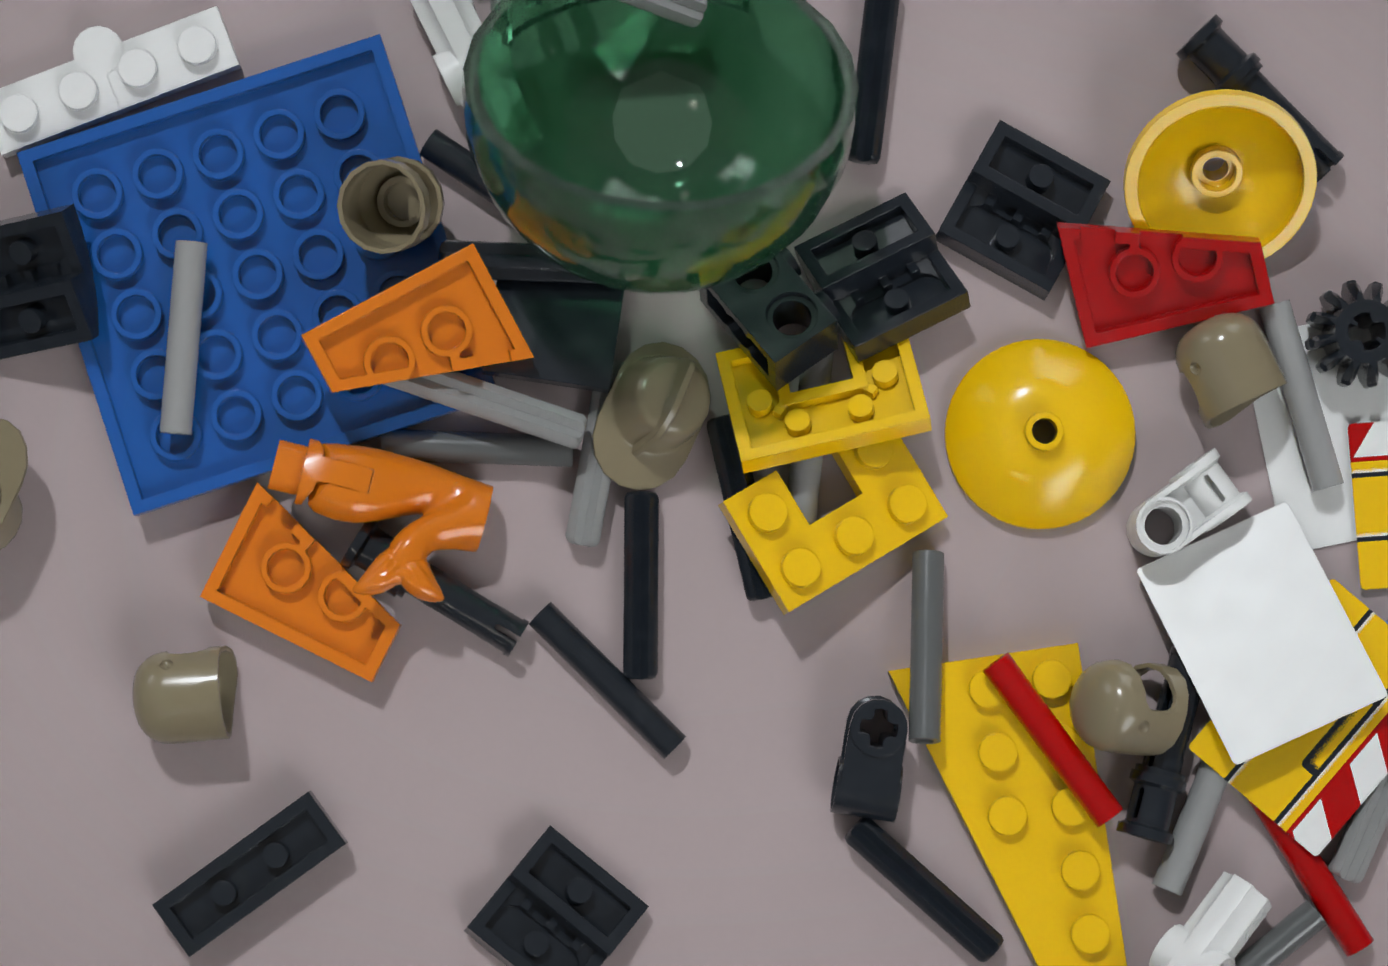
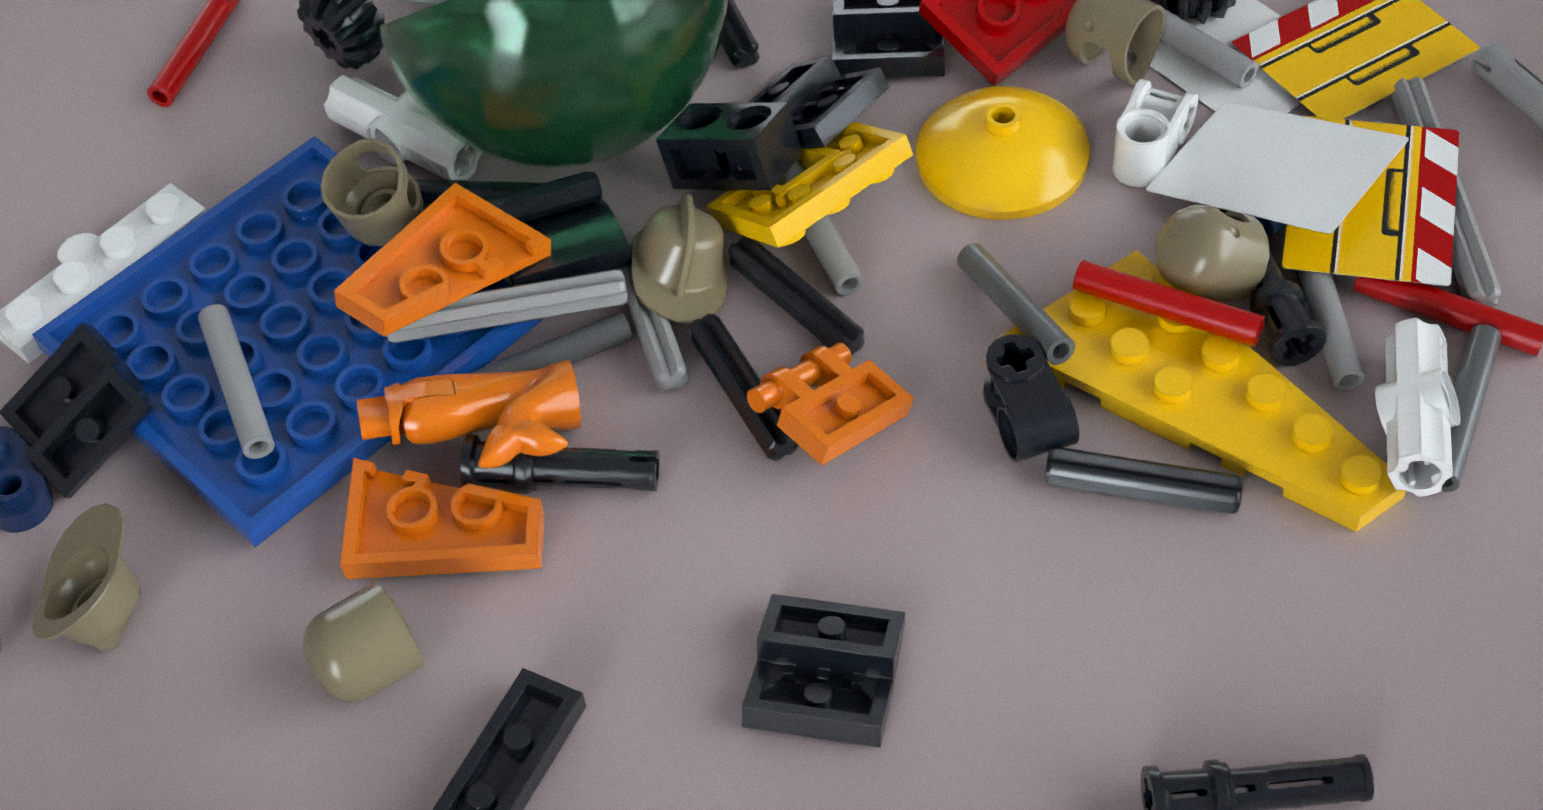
camera: 25 degrees left, 35 degrees down
(607, 680) = (756, 465): black piece -> none
(707, 682) = (841, 411): none -> orange plate
(808, 559) = (906, 251): yellow plate -> none

